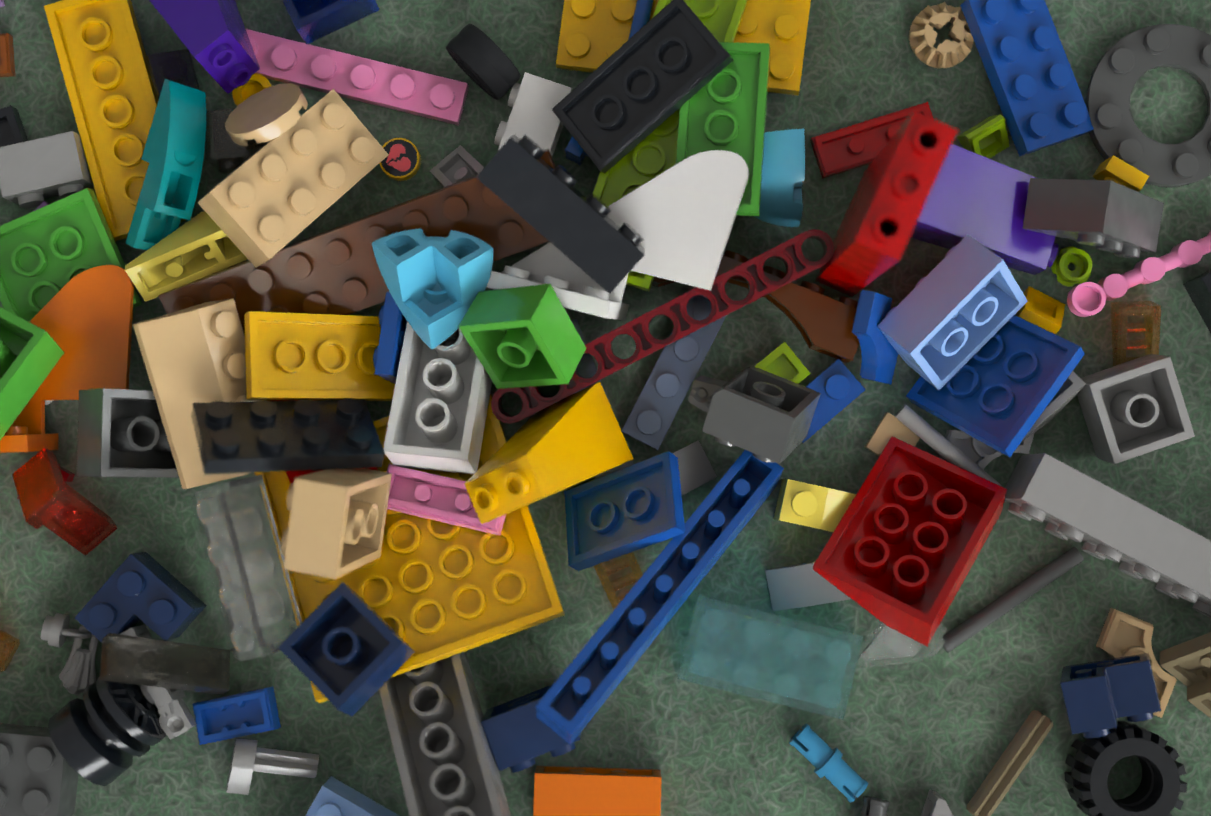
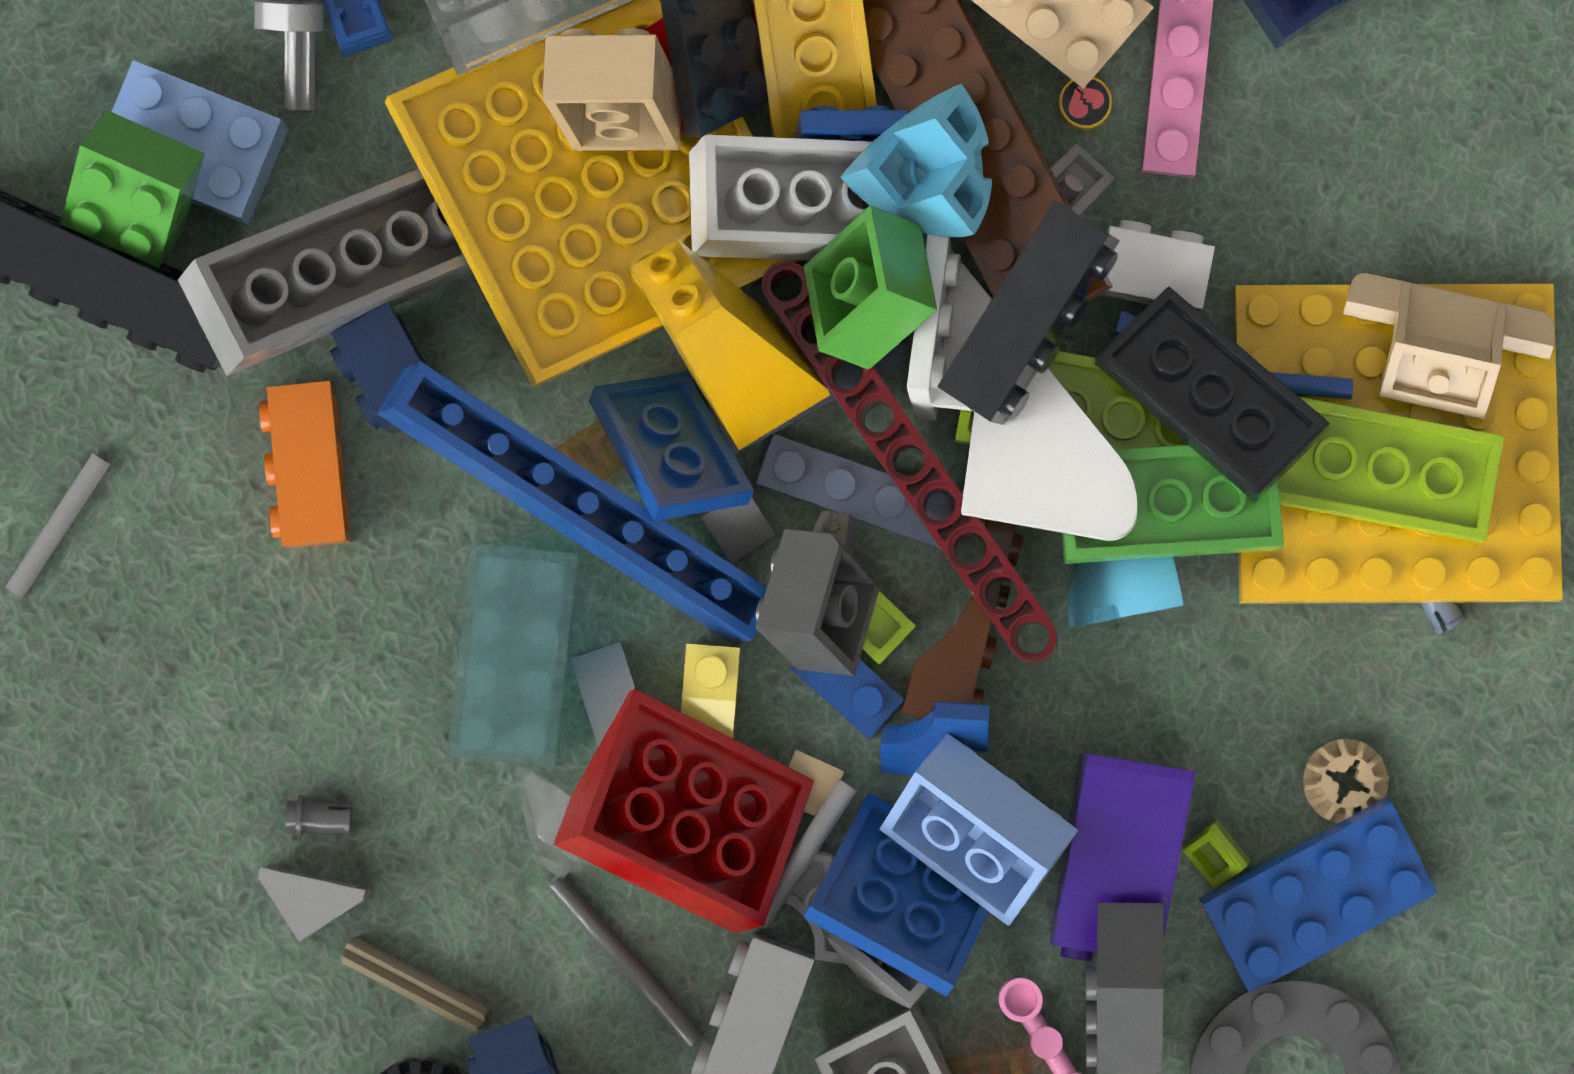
camera: 80 degrees right, 0 degrees up
(346, 650) = (456, 125): dark blue brick -> none
(436, 499) = (654, 208): bright pink tile -> none
(483, 61) = (1221, 191): black tyre -> none
(828, 763) = (388, 752): dark azure pin -> none
(860, 142) = (1196, 711): red tile -> none
(887, 204) = (1089, 706): red brick -> none
(1042, 310) = (999, 950): yellow plate -> none
(1082, 264) = (1051, 983): lime plate -> none
(1121, 173) = (1187, 1031): yellow plate -> none

